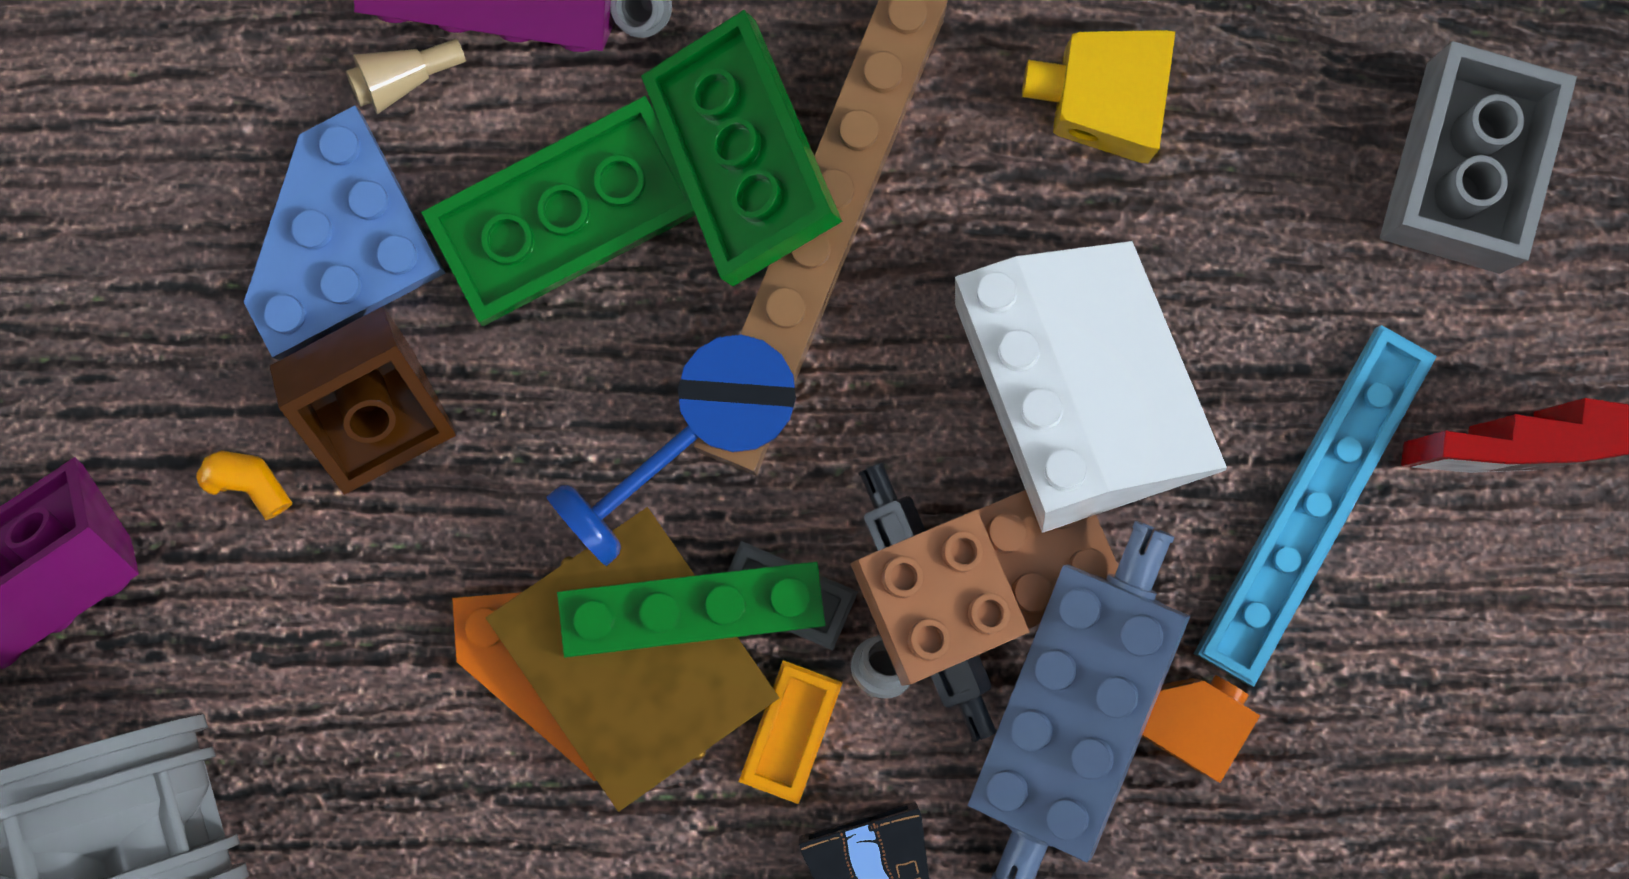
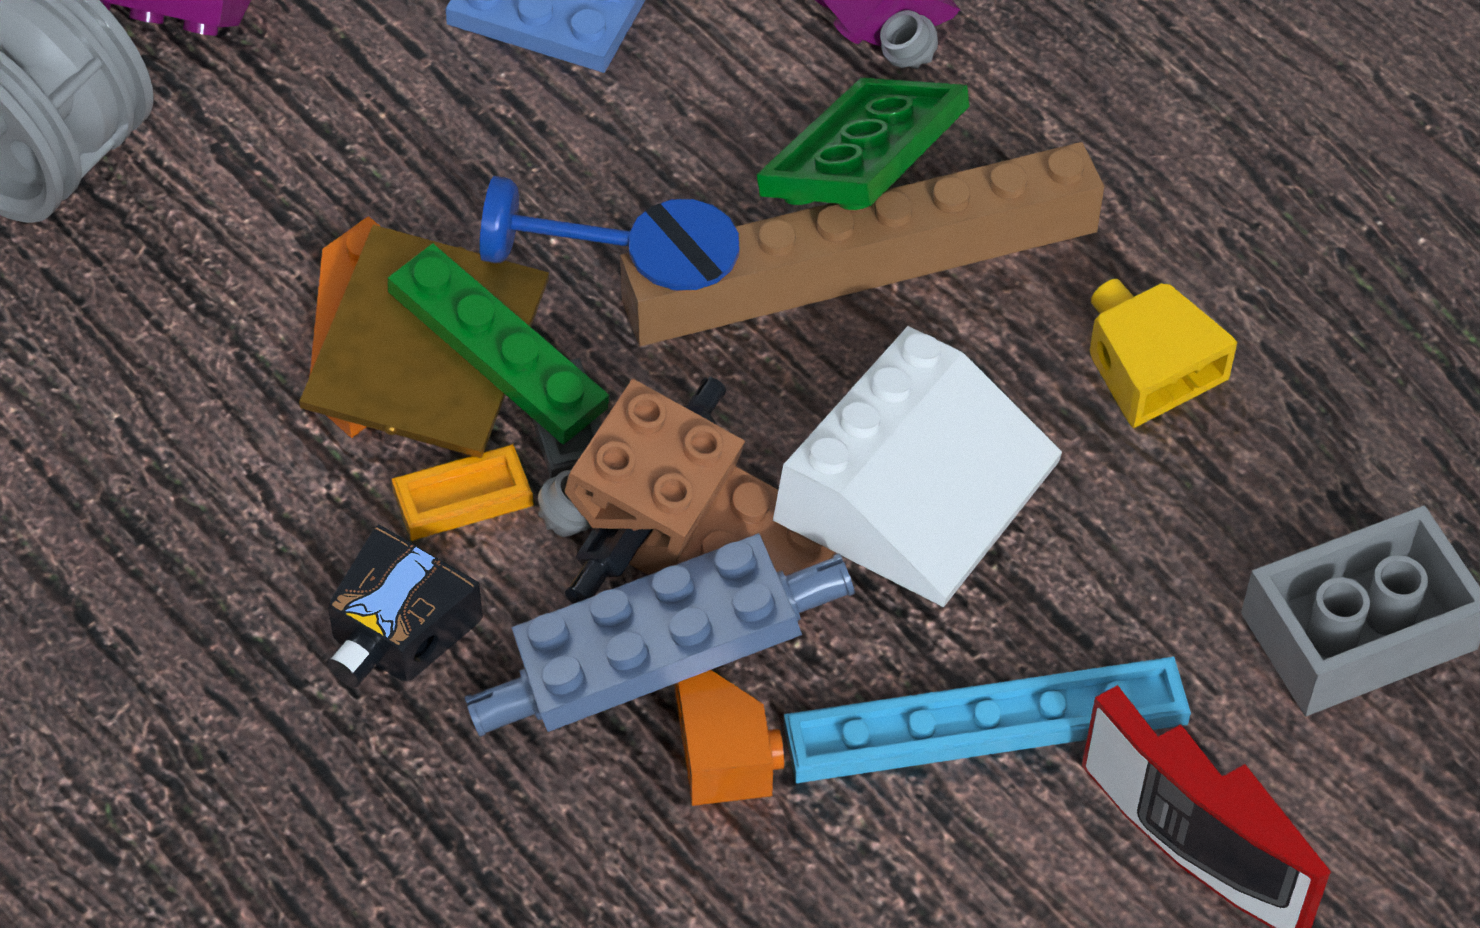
camera: 50 degrees right, 30 degrees down
(247, 474) = (347, 49): light orange arm -> none
(361, 400) = (462, 73): reddish brown slope -> none
(561, 211) = (708, 92): green plate -> none

